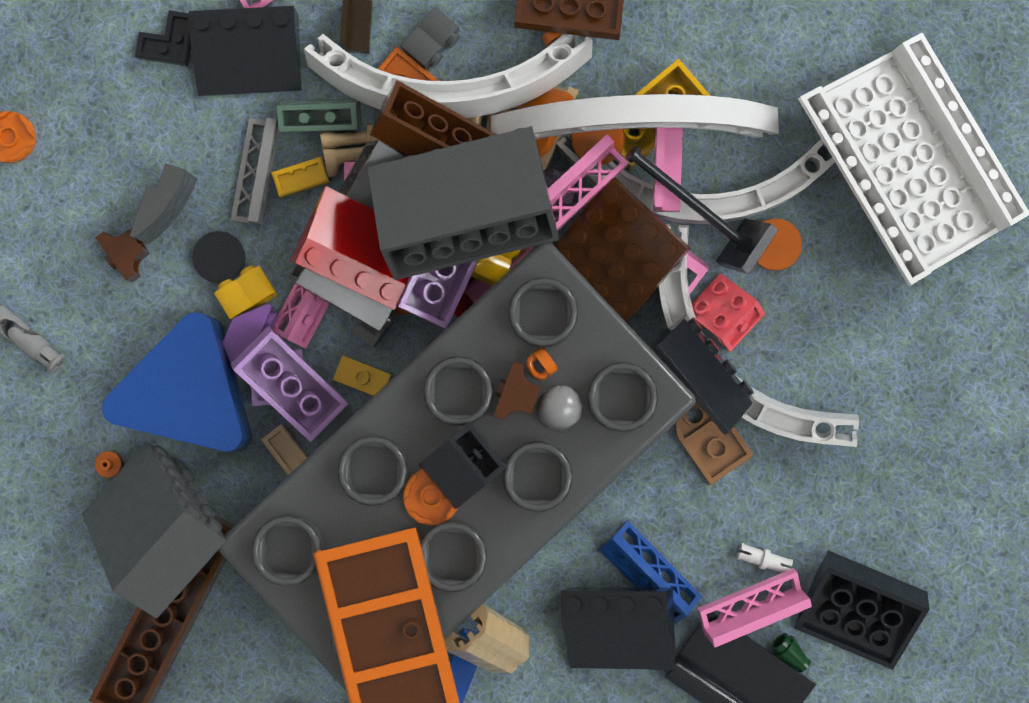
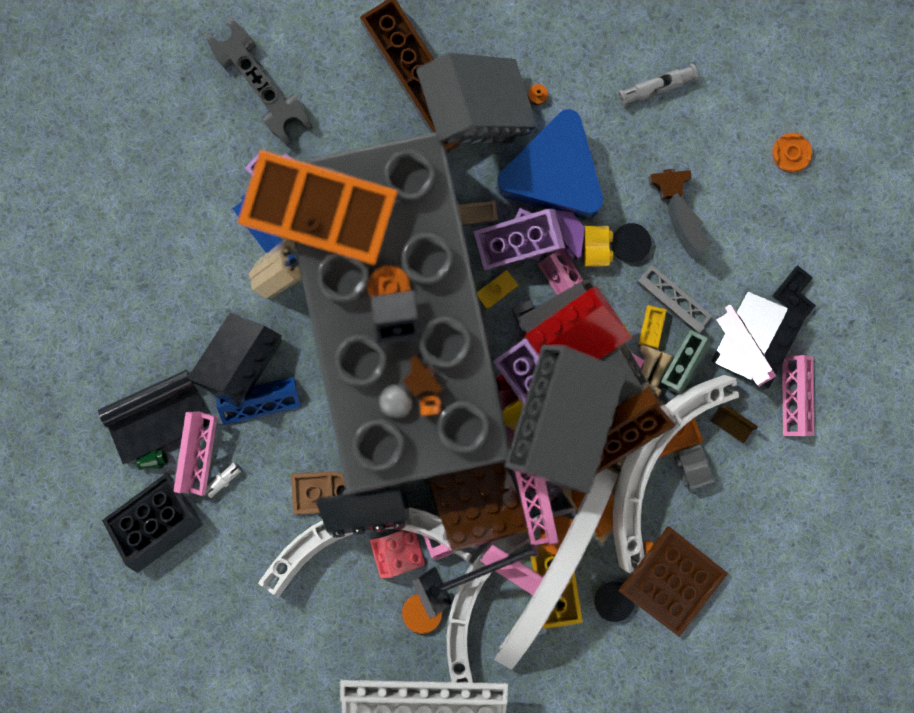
camera: 110 degrees right, 0 degrees up
(261, 57) = (746, 347): none -> fence
(637, 41) = (612, 603): none -> black tile

